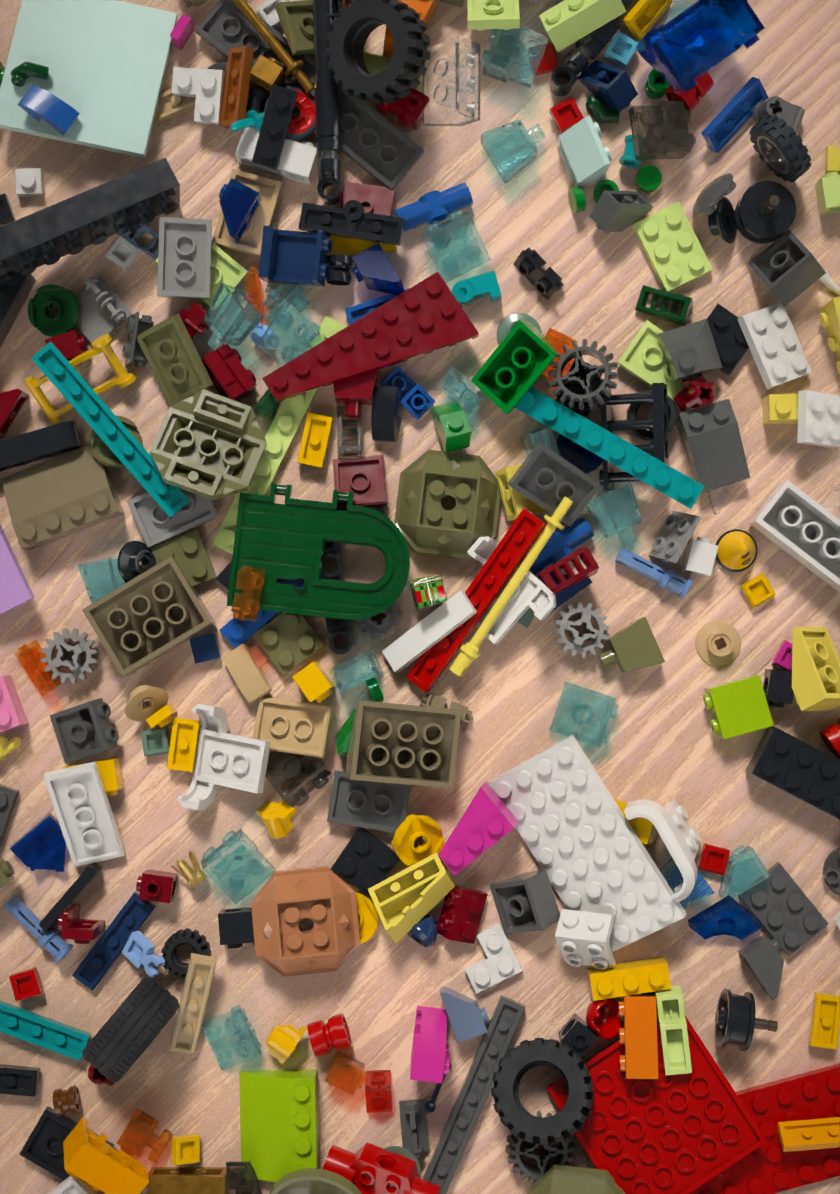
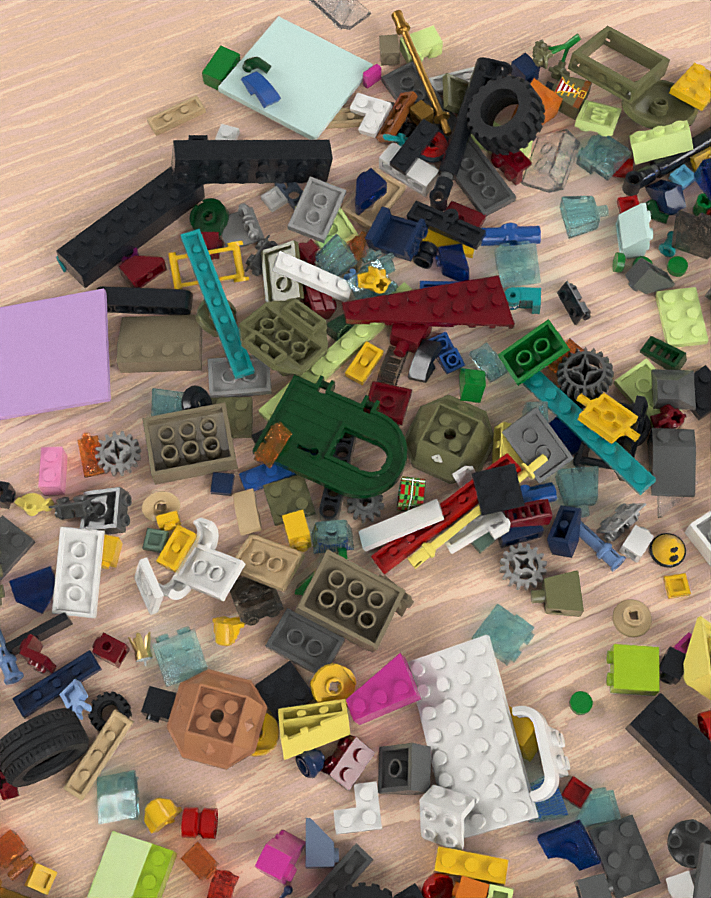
camera: 15 degrees right, 20 degrees down
(45, 738) = (66, 507): none -> dark grey hinge
(171, 804) = (148, 586): none -> white tile
(212, 355) = (312, 276): none -> white plate
(290, 333) = (374, 280): none -> yellow piece
(527, 559) = (498, 489): none -> black plate
(616, 573) = (565, 531): none -> dark blue slope
(627, 427) = (607, 418): none -> yellow plate
(690, 761) = (580, 703): none -> green tile

